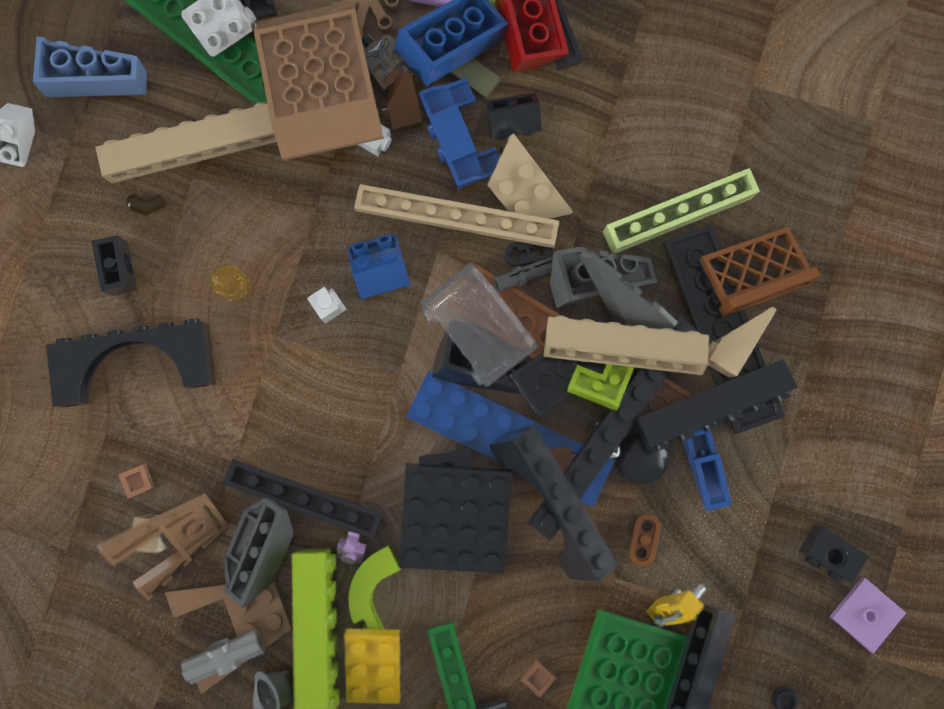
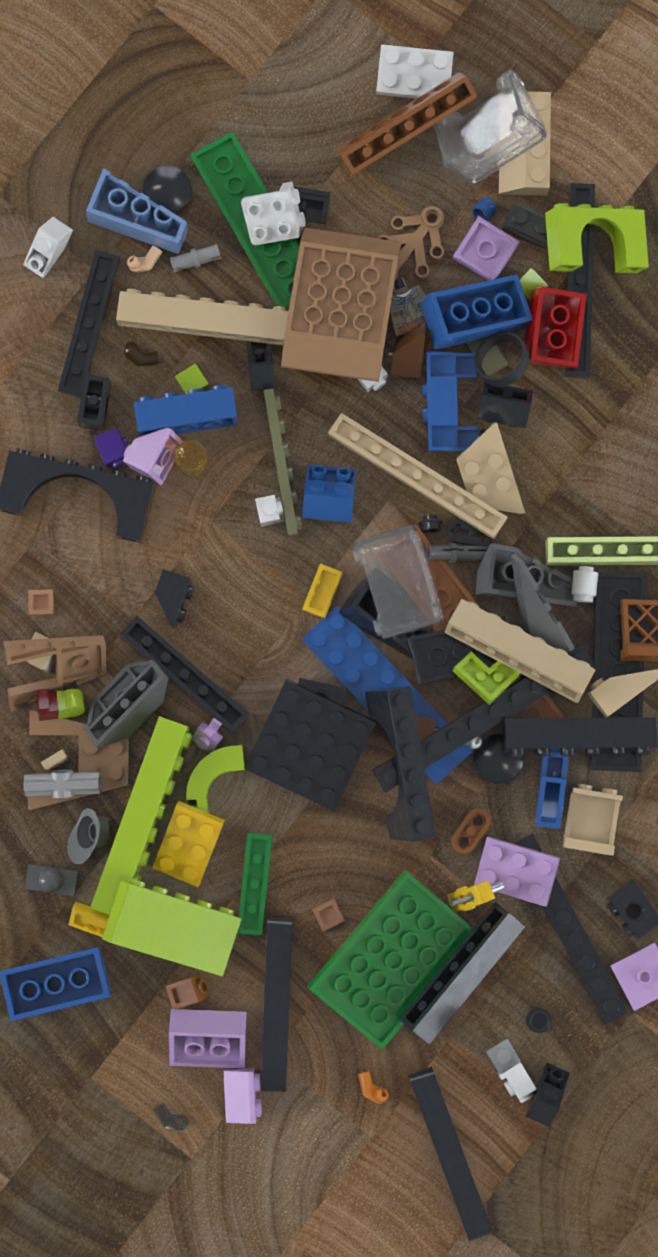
camera: 25 degrees right, 0 degrees up
(81, 189) = (88, 323): none -> black plate
(113, 34) = (168, 187): none -> black dish
(115, 116) = (146, 263): none -> light nougat arm
(150, 303) = (112, 448): none -> dark purple brick
(163, 91) = (195, 258): none -> light grey pin
(190, 293) = (153, 454): none -> lavender slope
(191, 576) = (59, 704): none -> leg
(204, 209) = (191, 379): none -> lime tile
(206, 241) = (187, 412): none -> blue brick
(208, 633) = (55, 760): none -> tan tile
(263, 424) = (172, 593): none -> black slope
(264, 169) = (260, 366): none -> black slope
(316, 245) = (285, 473): none -> olive plate
(408, 362) = (322, 591): none -> yellow plate
(479, 58) = (512, 376): none -> black tyre
(487, 257) = (430, 524): none -> black plate
(658, 257) = (584, 584): none -> white brick
(710, 560) = (524, 871): none -> lavender plate
(756, 483) = (591, 820): none -> tan panel
(777, 597) = (580, 948): none -> black plate

